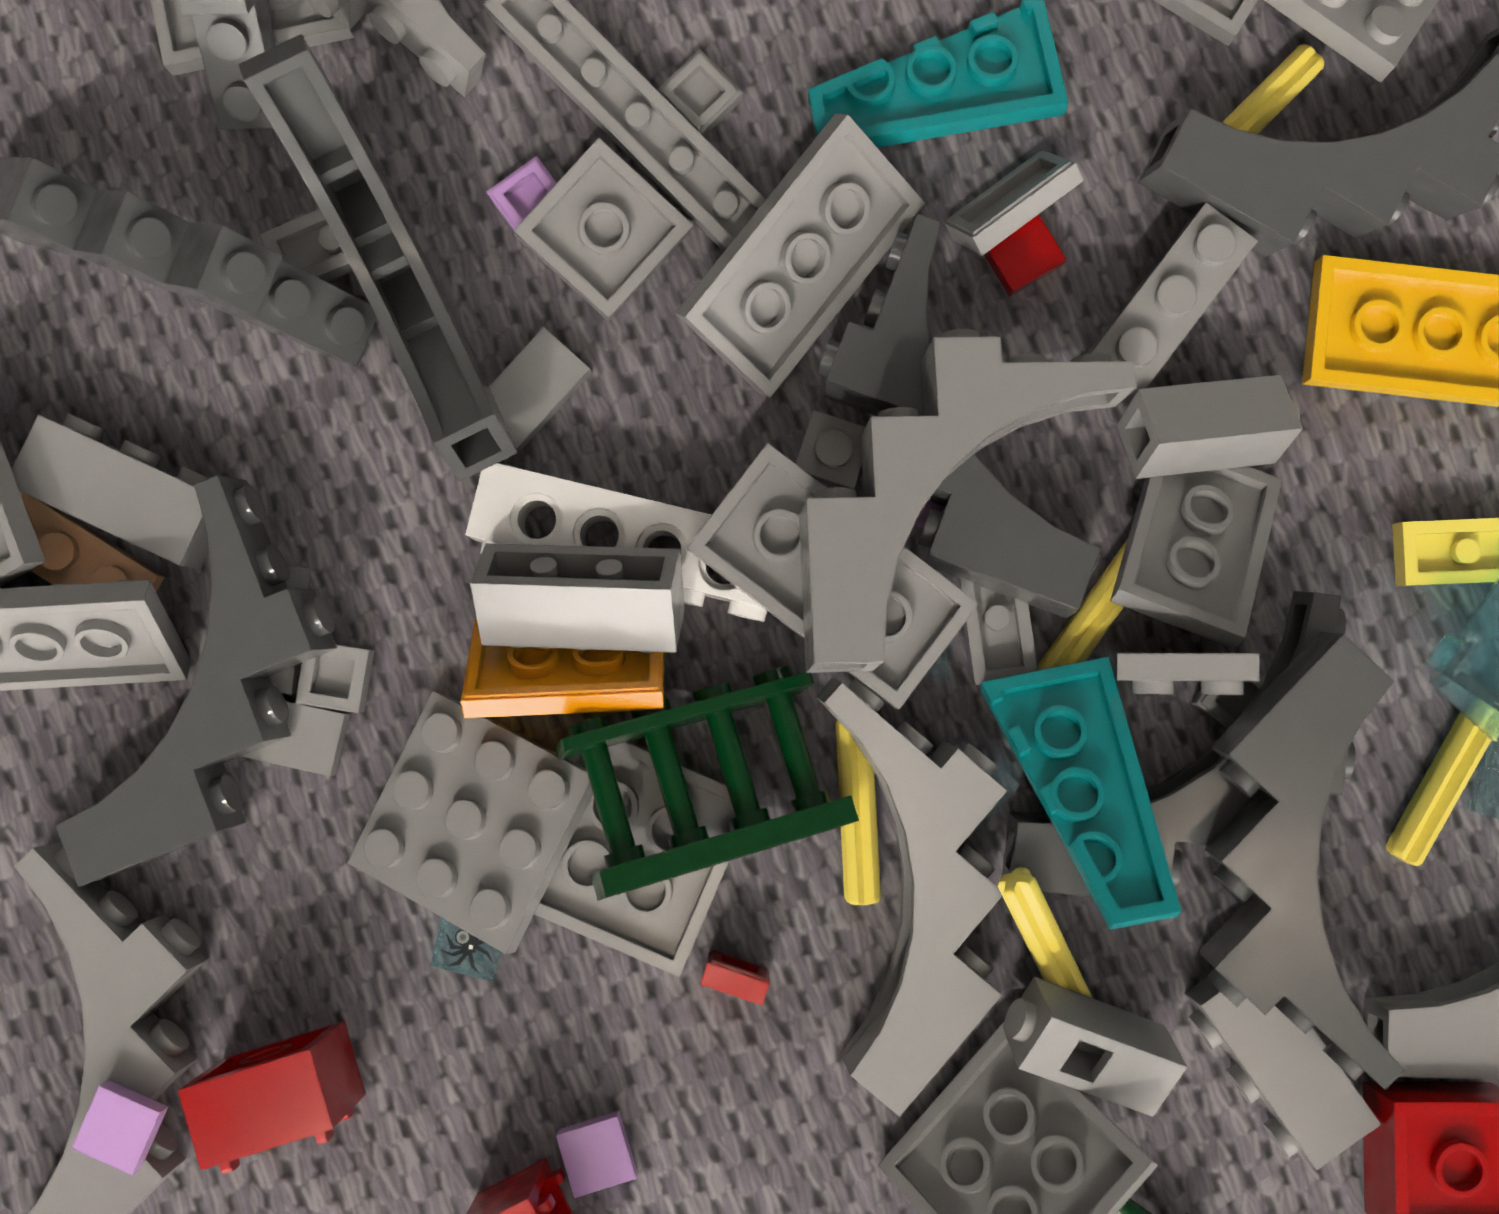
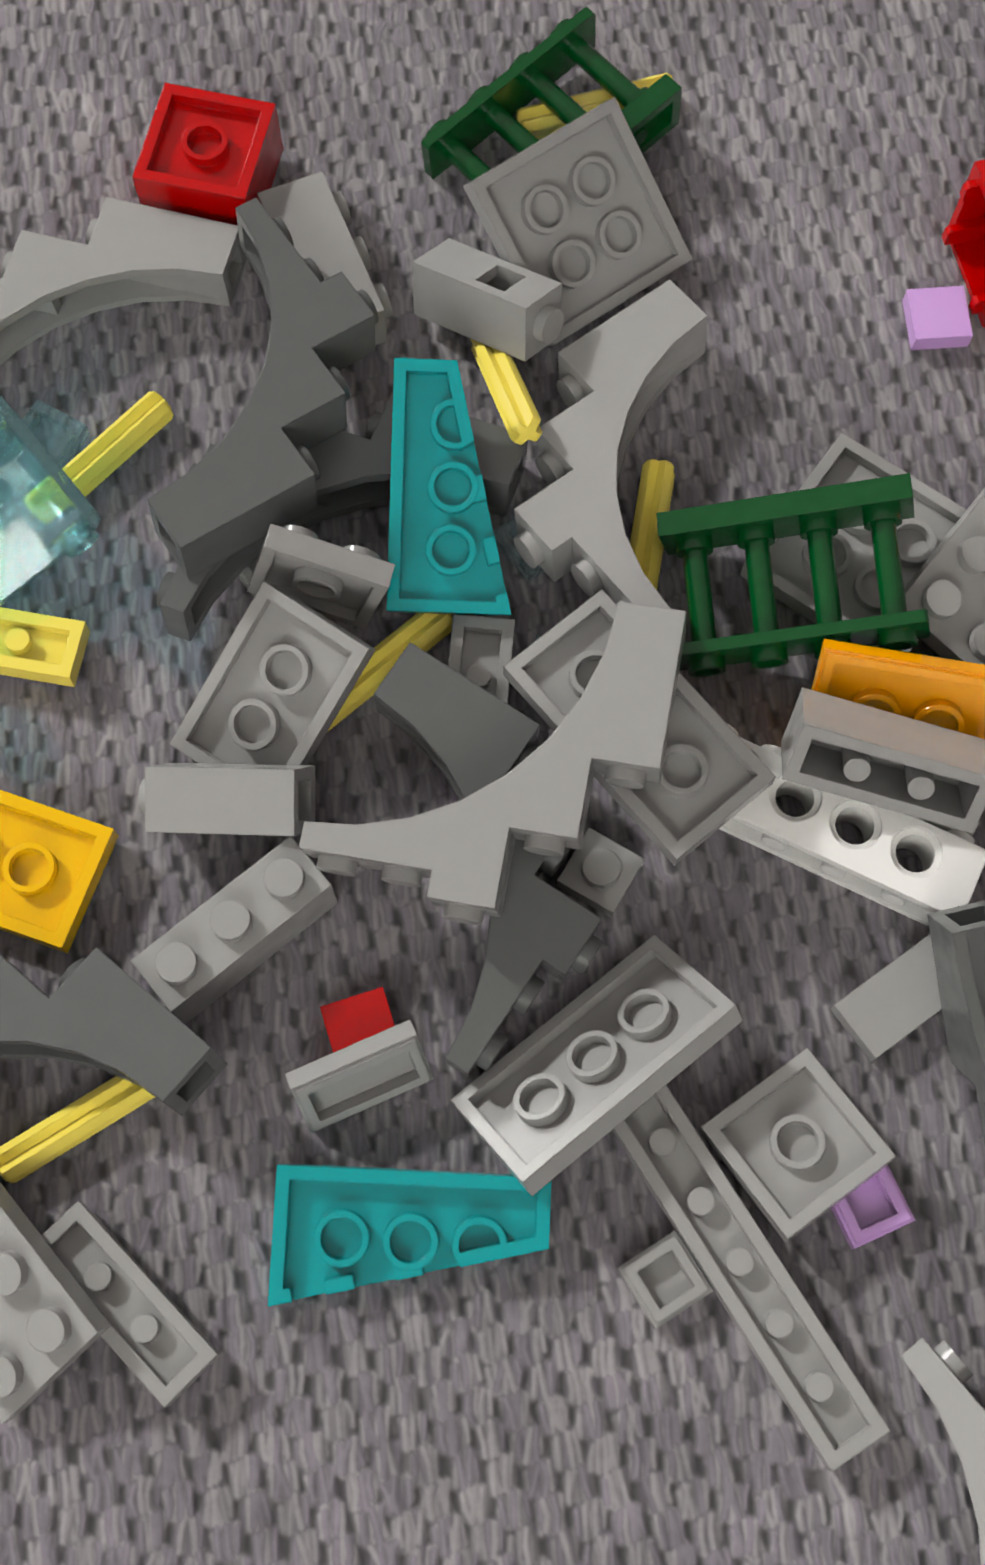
camera: 170 degrees left, 15 degrees down
(735, 977) = (790, 423): tile -> none

